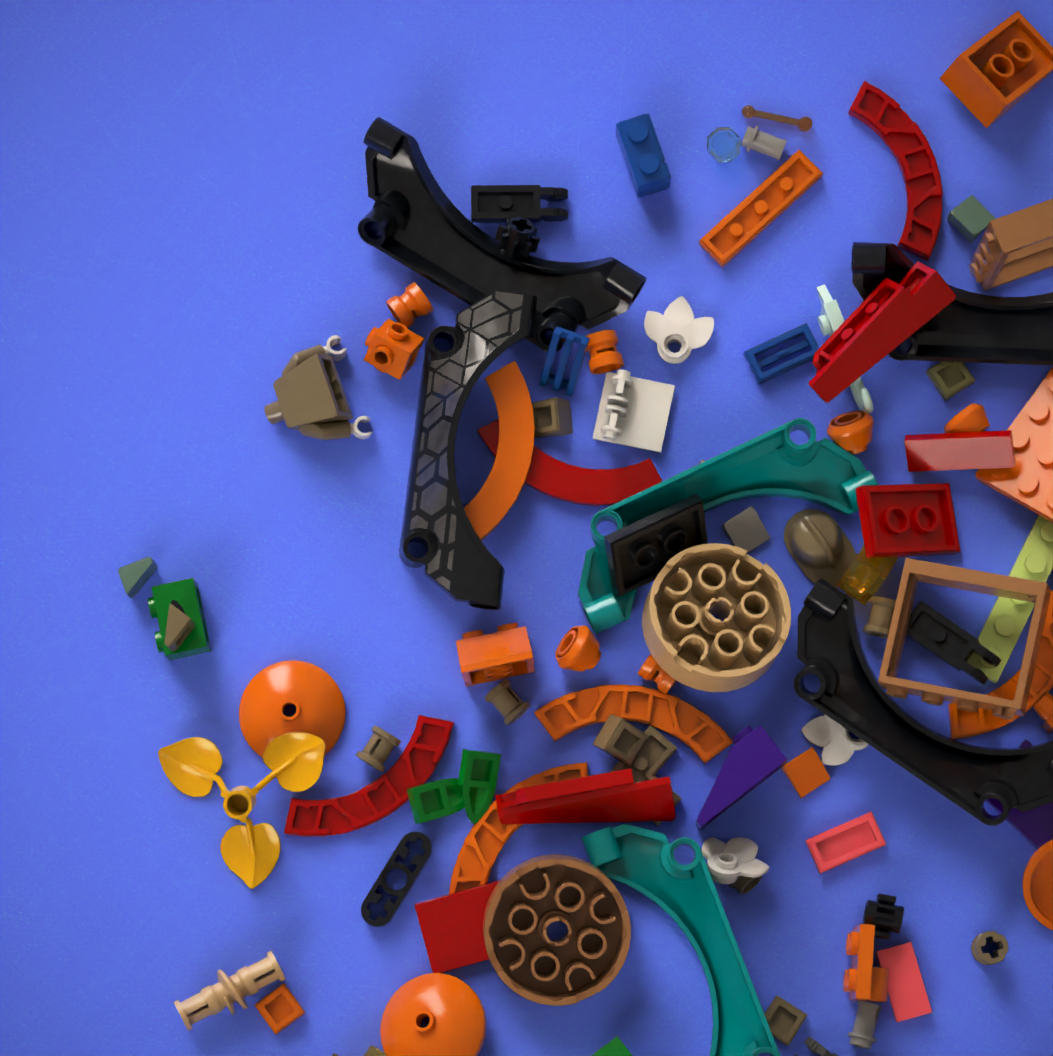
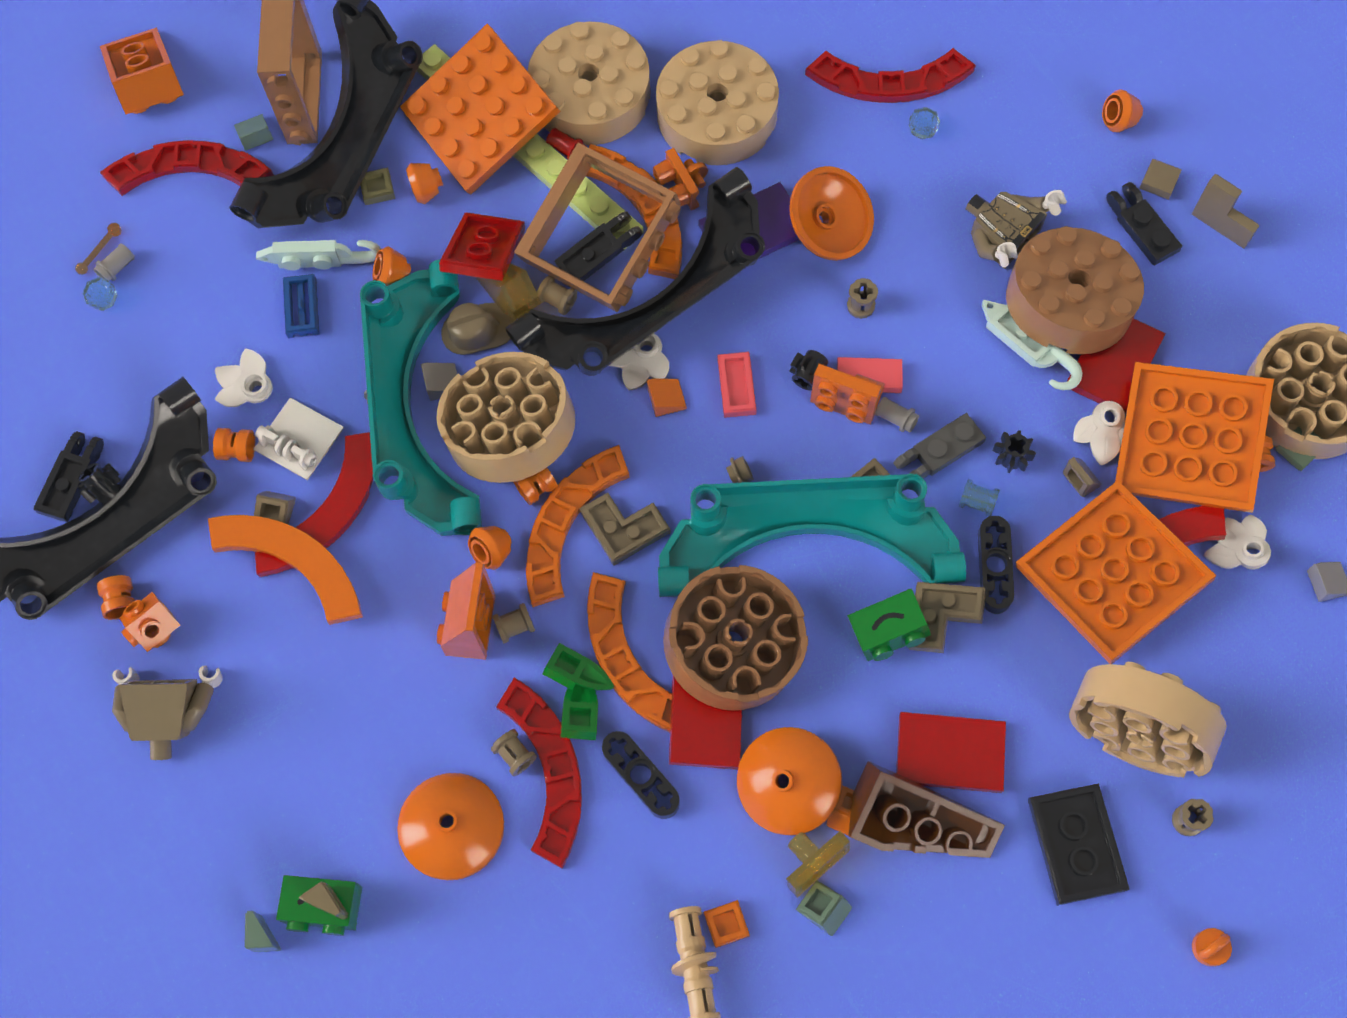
camera: 75 degrees left, 10 degrees down
(247, 849) = (565, 908): yellow plant -> none
(433, 508) = (299, 625): panel -> none
(558, 380) = (245, 492): blue tile -> none
(589, 800) = (627, 575): red wedge -> none
(620, 739) = (582, 535): dark tan slope -> none
(643, 155) = (76, 358): blue brick -> none
(645, 546) = (419, 447): black tile -> none
(732, 859) = (724, 468): white plate -> none
(746, 766) = (647, 440): dark purple slope -> none
(760, 208) = (169, 285): orange tile -> none
(878, 328) = (310, 211): red wedge -> none
(960, 451) = (441, 190): tile -> none

